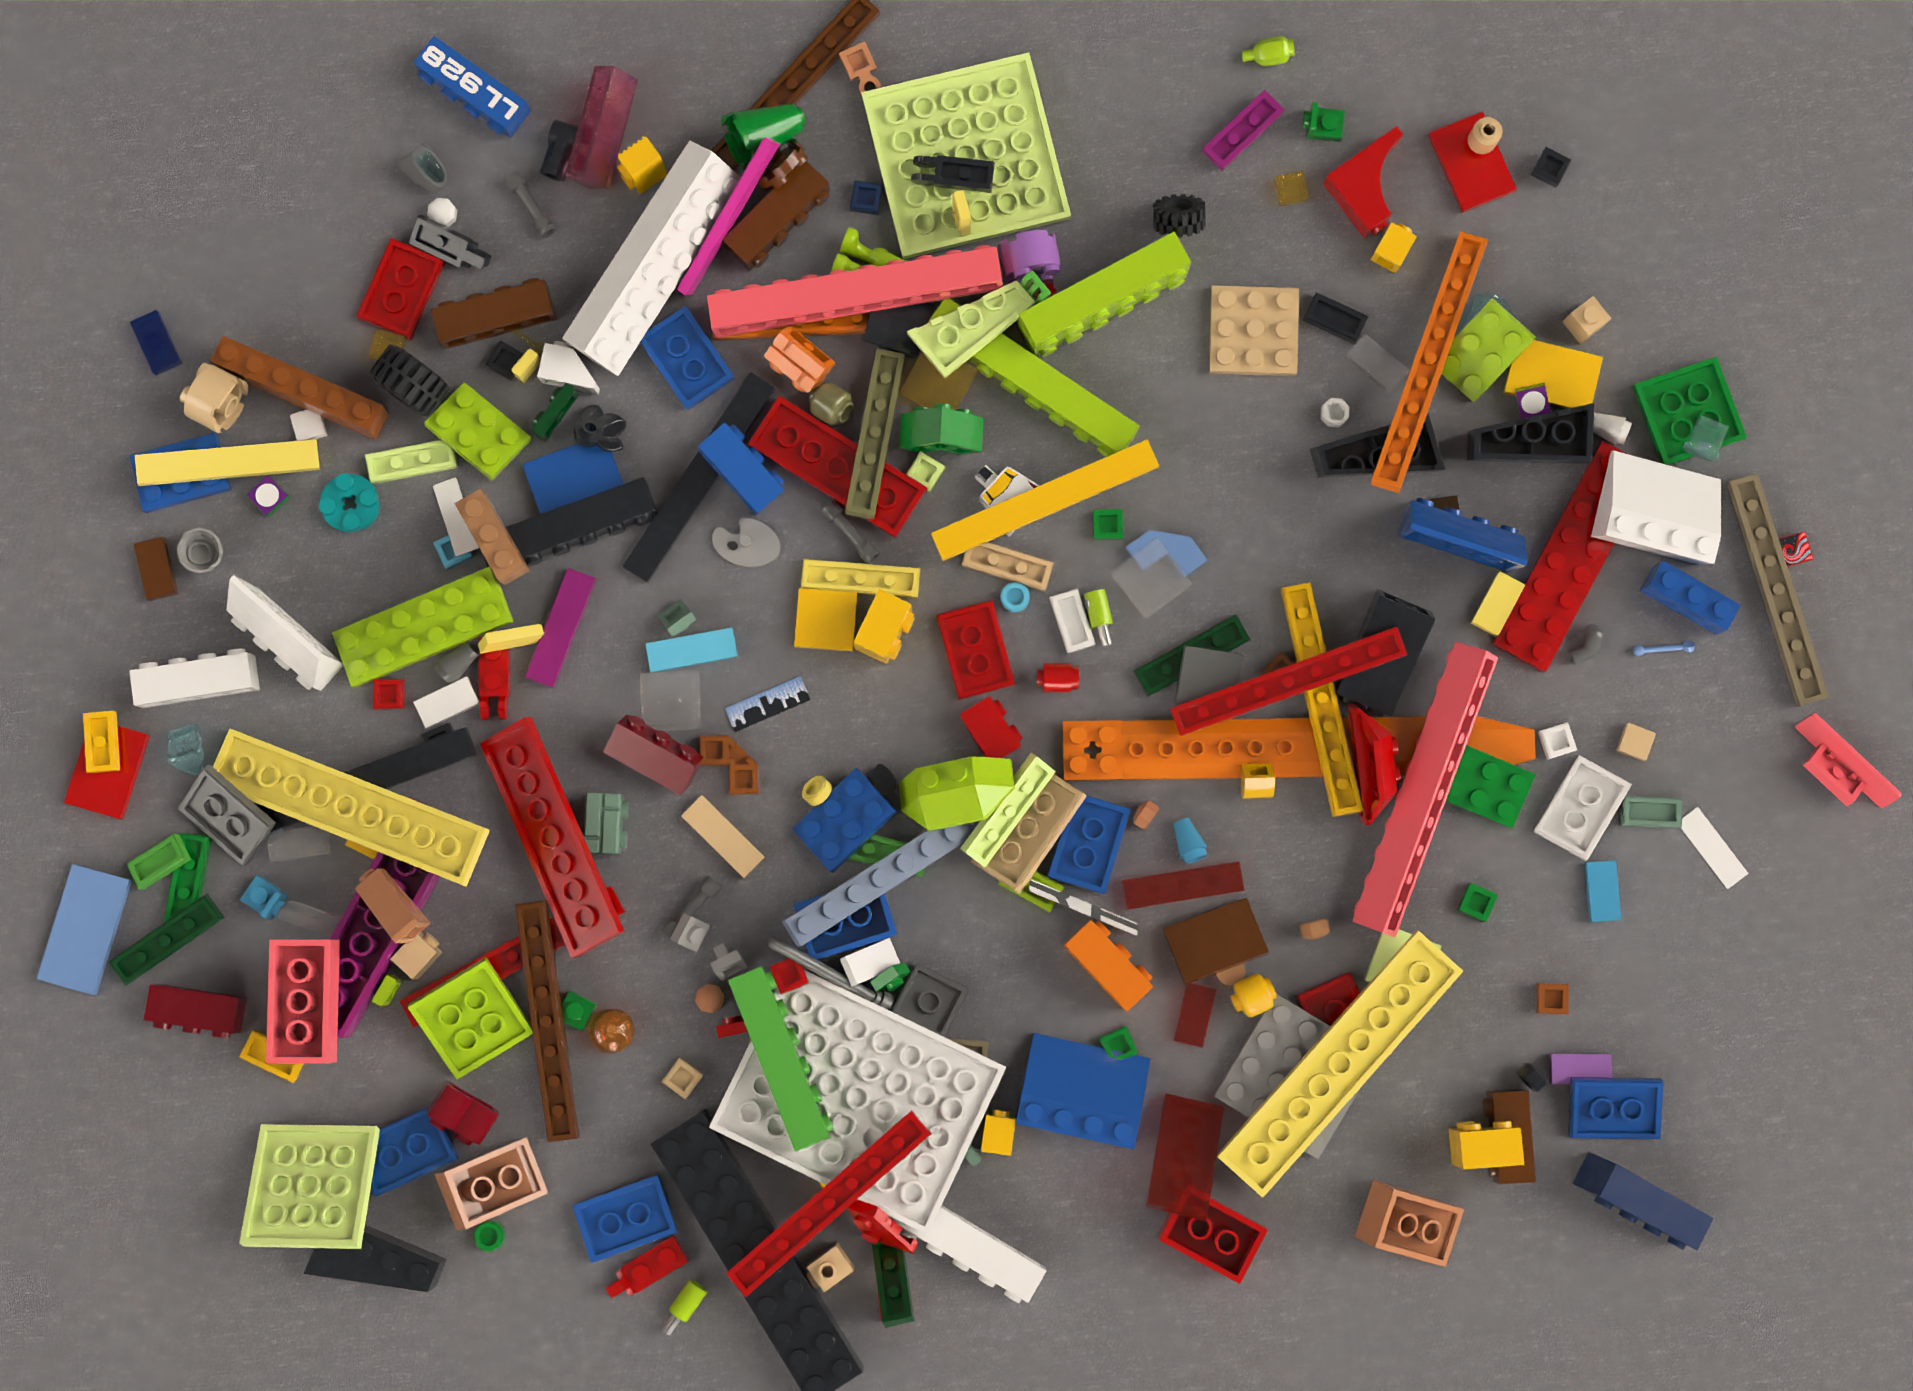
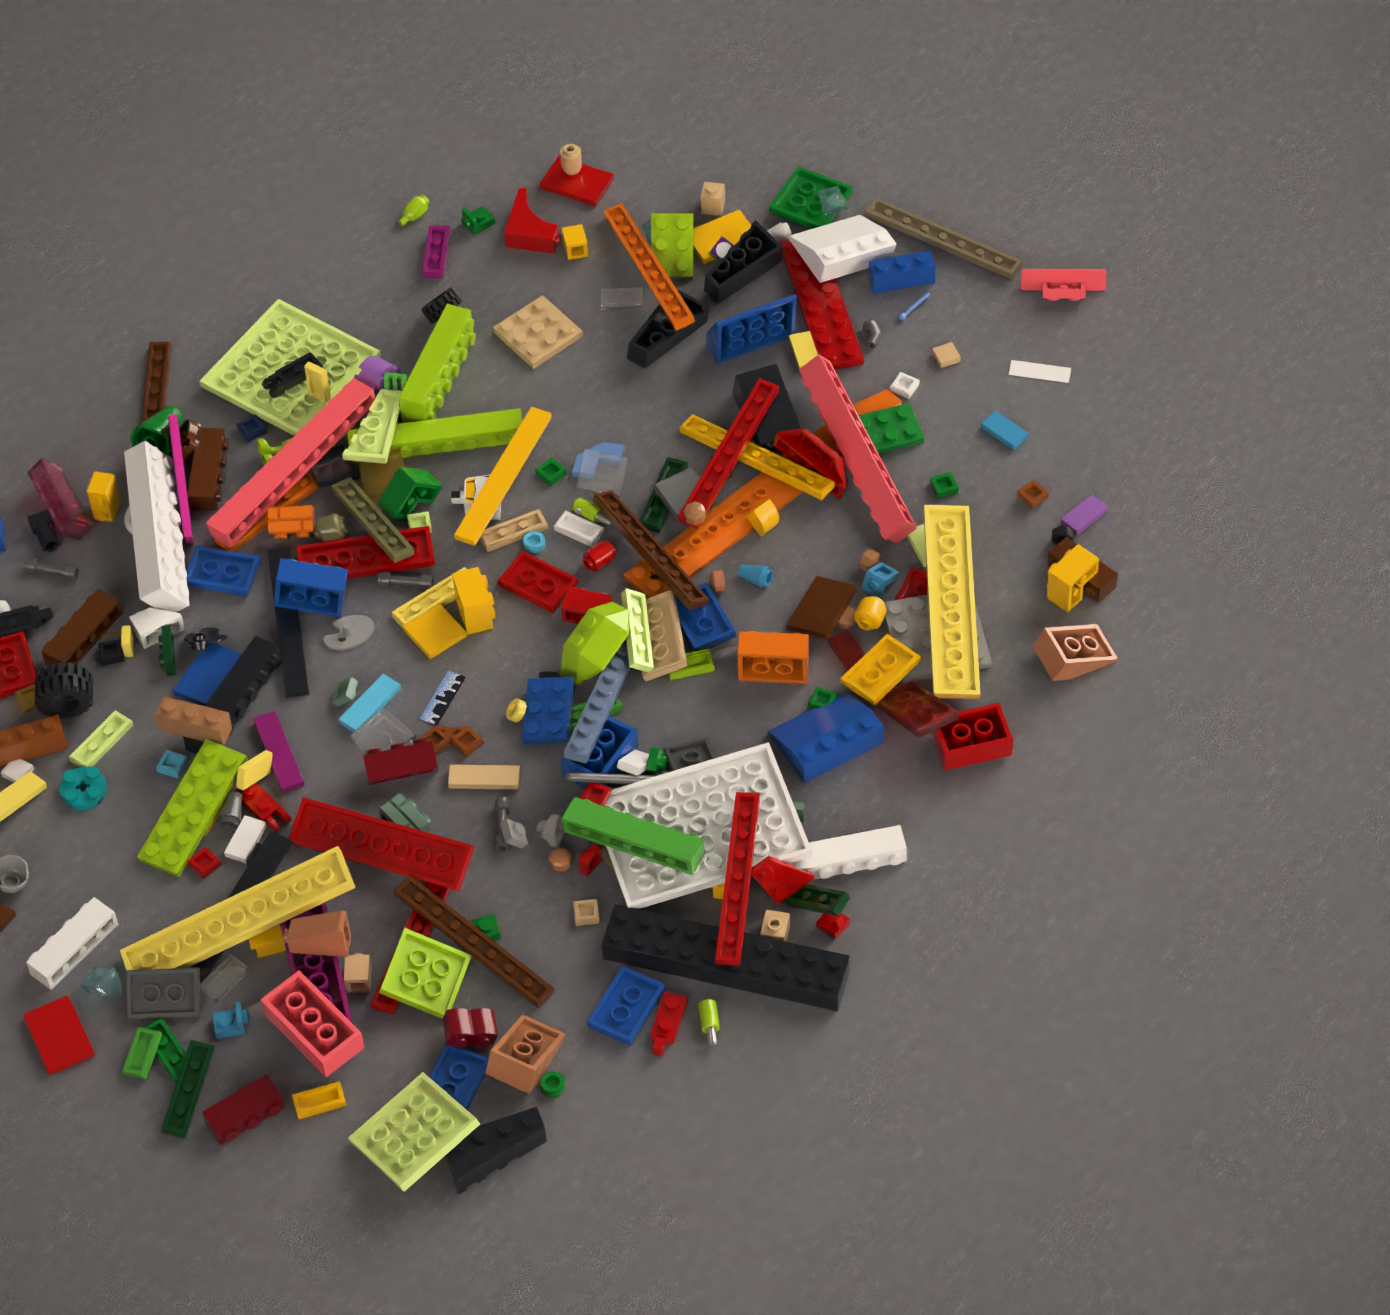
camera: 40 degrees left, 30 degrees down
(84, 929) = (127, 1129): medium blue tile -> none
(101, 741) = (43, 1014): yellow plate -> none
(268, 496) = (26, 822): tile -> none
(281, 634) = (107, 866): white slope -> none
(387, 990) = (357, 1005): lime tile -> none
(459, 534) = (157, 745): white sticker -> none
(477, 431) = (128, 694): lime plate -> none
(611, 1031) = (517, 921): clear orange hair -> none
(859, 64) = (185, 371): nougat plate -> none
(998, 1132) = (802, 787): yellow brick -> none
(1108, 723) = (650, 550): none -> reddish brown tile
(1183, 885) = (775, 598): clear red tile -> none
(1187, 724) = (694, 513): none -> medium nougat tile
(1199, 1072) = (880, 669): none -> yellow tile
(1291, 188) = (490, 258): clear yellow tile -> none
(1304, 959) = (878, 578): none -> dark azure bracket
(1335, 318) = (577, 295): black tile -> none
(1335, 412) = (622, 333): white tile -> none
(1550, 167) = (621, 153): black plate -> none
(1582, 808) = (951, 401): white tile -> none
(1615, 1108) = (1122, 516): blue tile -> none
(1642, 1201) = (1182, 541): dark blue wedge -> none
(1651, 812) = (989, 378): sand green tile -> none
(1796, 549) = (934, 215): tile -> none

